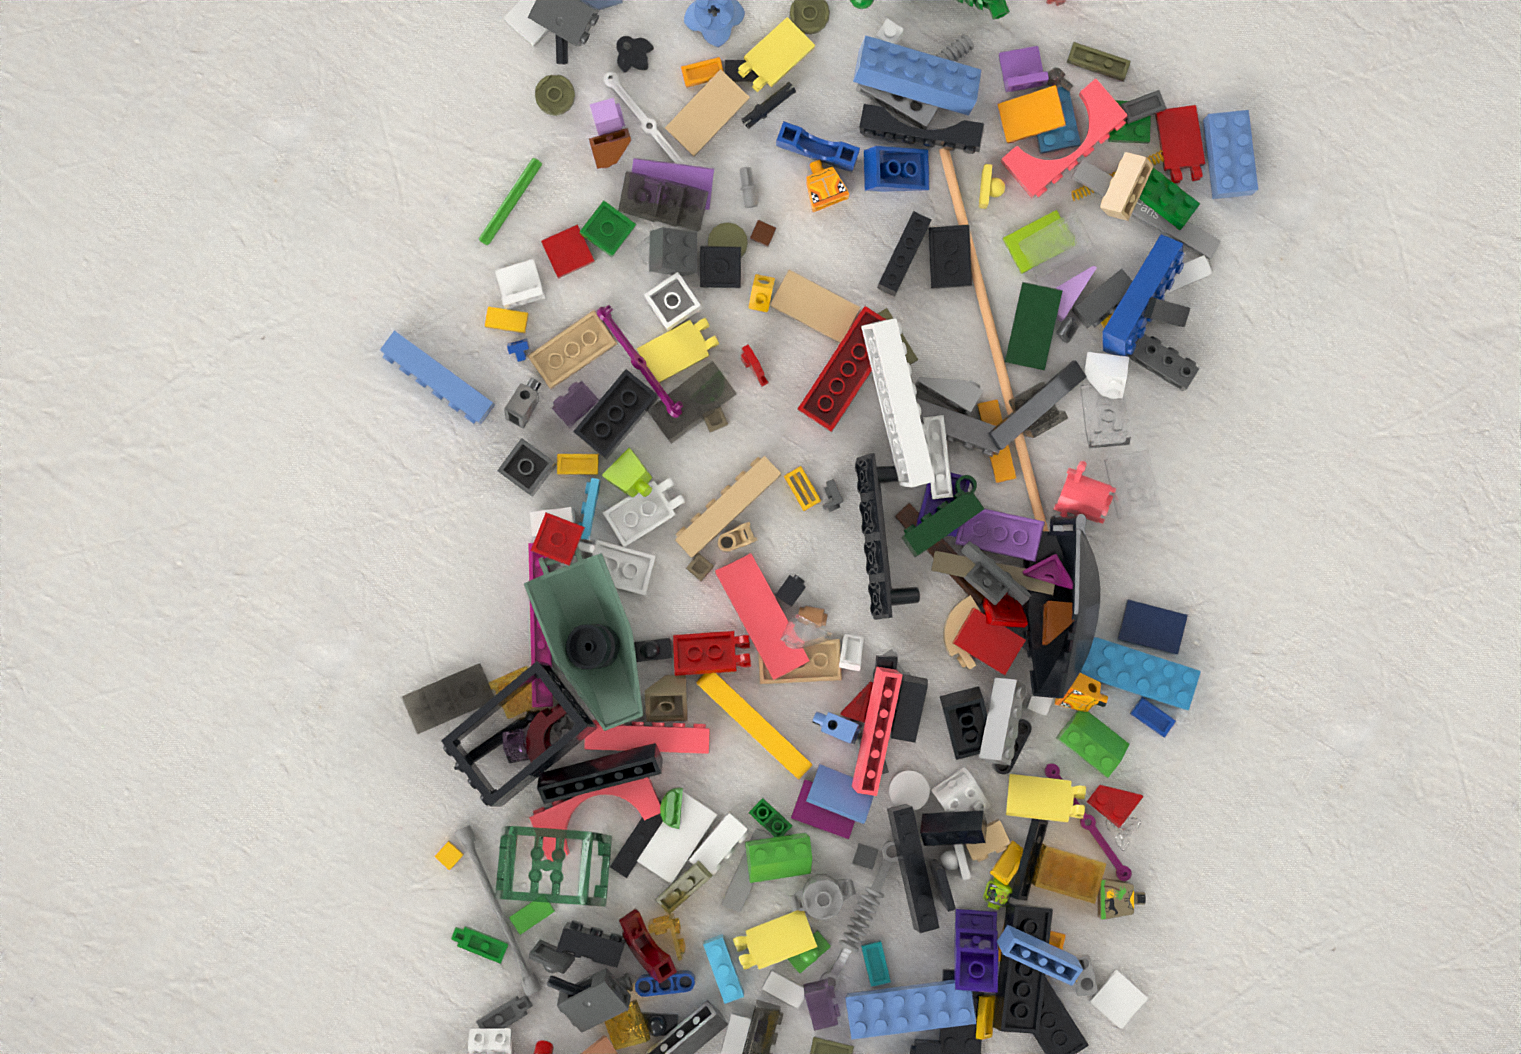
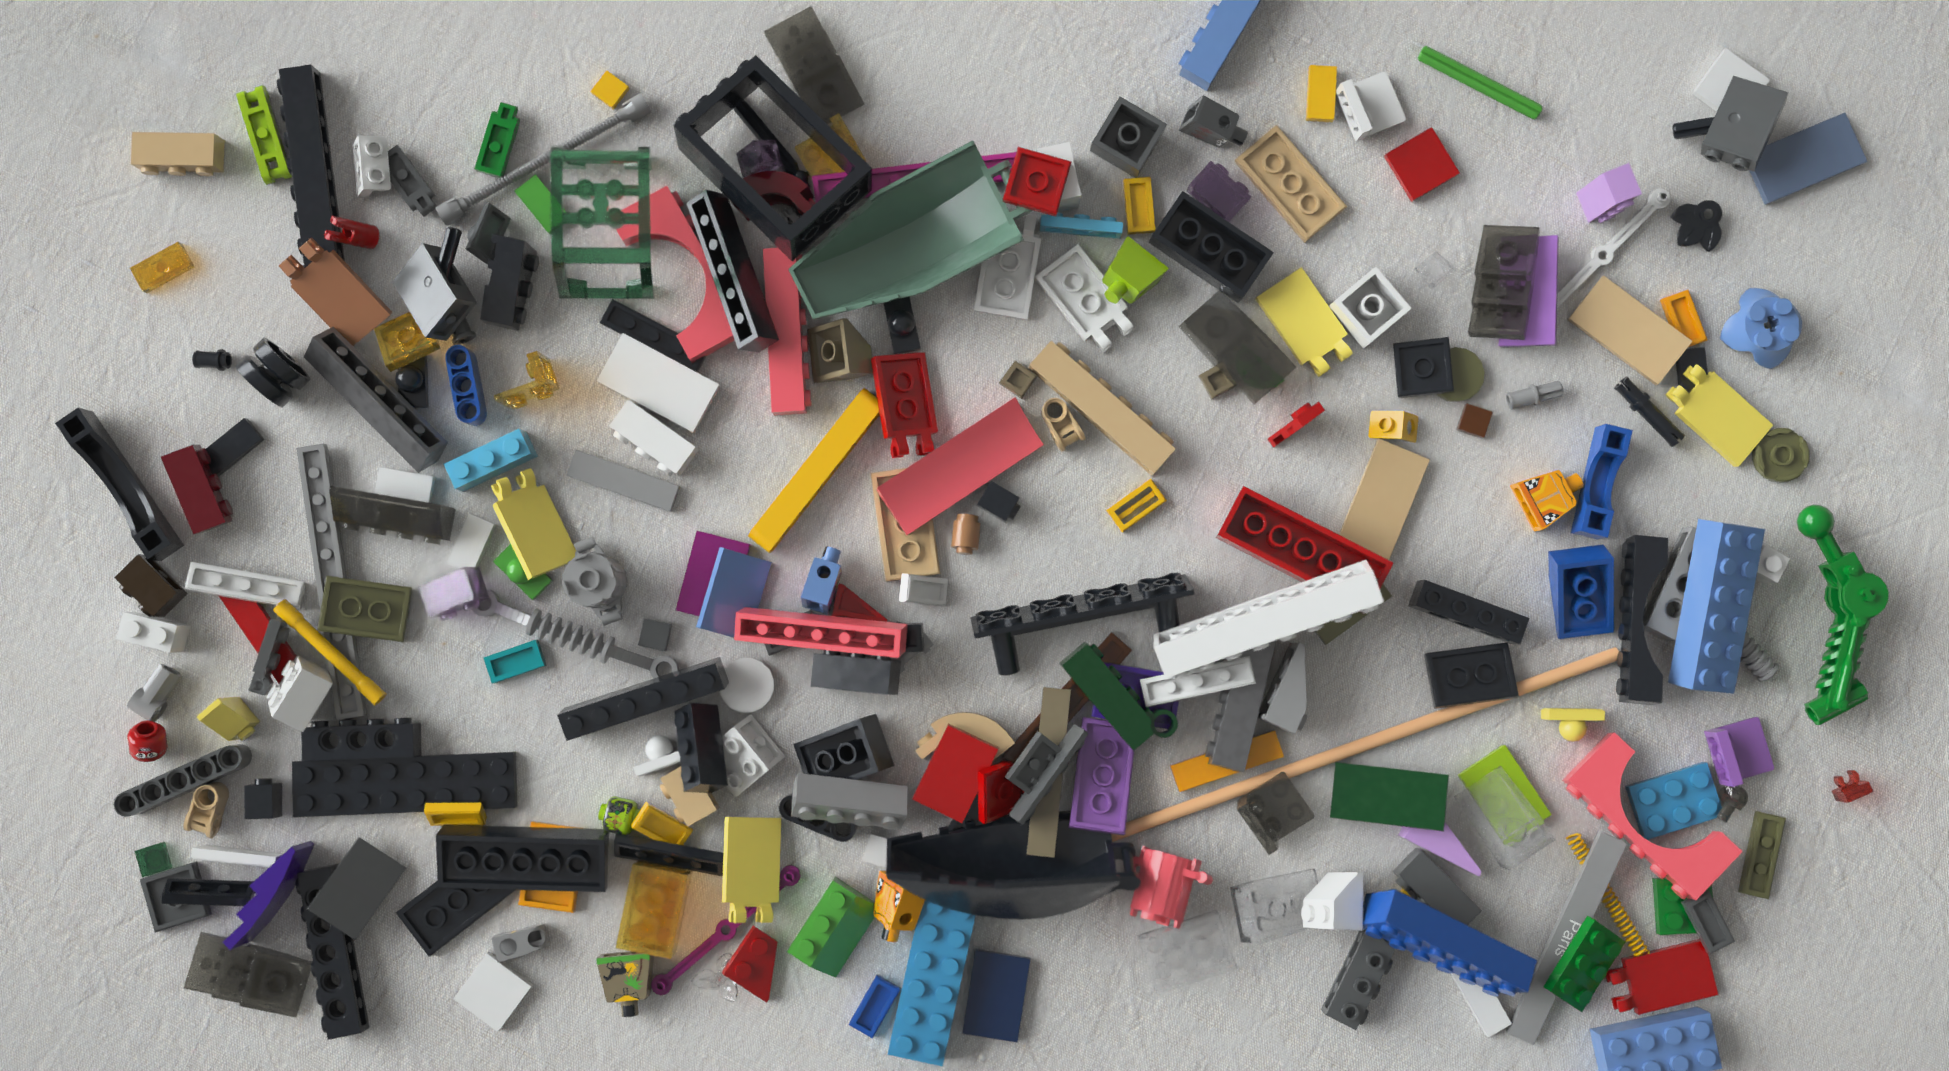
camera: 85 degrees right, 0 degrees up
(518, 348) = (1284, 112): blue tile -> none
(554, 94) = (1630, 127): olive tile -> none
(592, 646) = (899, 245): black wheel -> none
(607, 228) = (1458, 213): green plate -> none
(609, 147) = (1568, 203): dark orange slope -> none
(639, 362) = (1283, 271): magenta piece -> none
(646, 951) = (509, 354): dark red arch -> none
(671, 807) = (694, 370): bright green tile -> none
(673, 251) = (1437, 300): dark grey brick -> none
(683, 887) = (593, 397): olive tile -> none
(770, 818) = (693, 504): green slope -> none
(779, 857) = (643, 518): bright green slope -> none
(803, 633) = (942, 523): clear slope -> none
(832, 492) = (1135, 545): dark grey bracket -> none
(909, 1009) = (457, 712): medium blue brick -> none
(942, 885) = (621, 738): black tile -> none
(976, 951) = (539, 792): dark purple slope -> none
(1031, 114) = (1679, 769): light orange tile -> none
(1037, 405) = (1282, 810): tile -> none
(1039, 955) = (539, 878): medium blue brick -> none
(1050, 571) = (1058, 847): magenta tile -> none
(1055, 619) = (992, 861): dark orange slope -> none
(1067, 329) = (1389, 843): dark grey tile -> none
(1126, 186) = (1597, 907): brick -> none
(1167, 312) = (1429, 977): black tile -> none

